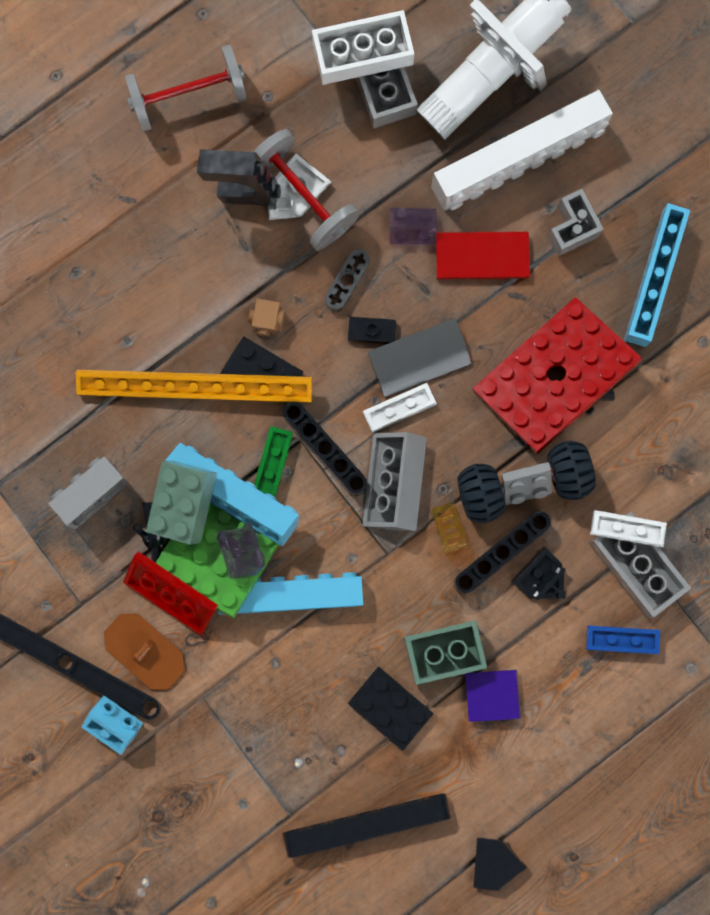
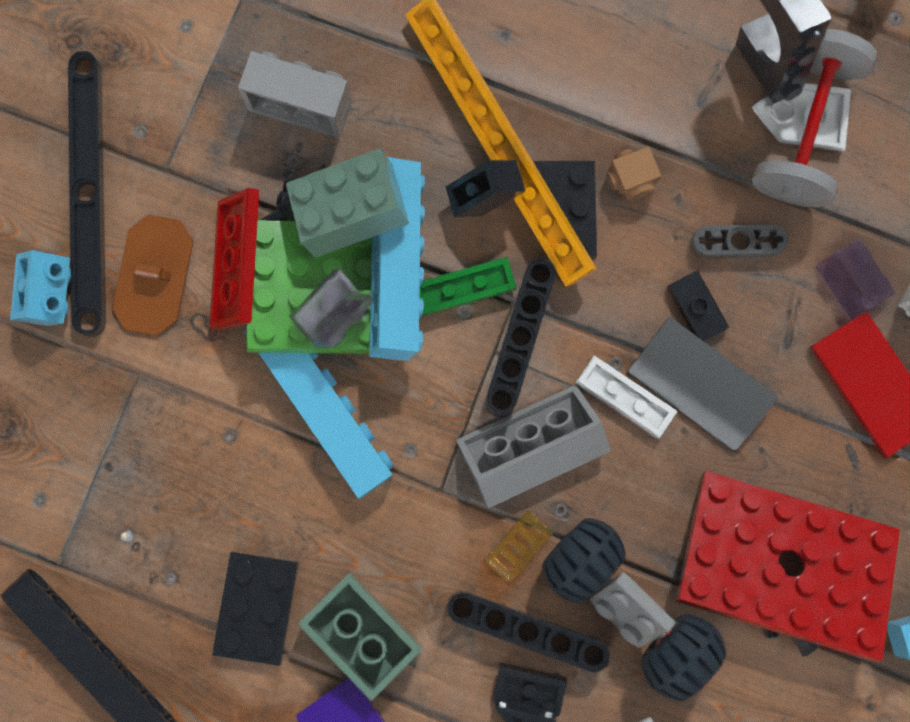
camera: 55 degrees right, 0 degrees up
(221, 413) = (485, 188): none -> black brick

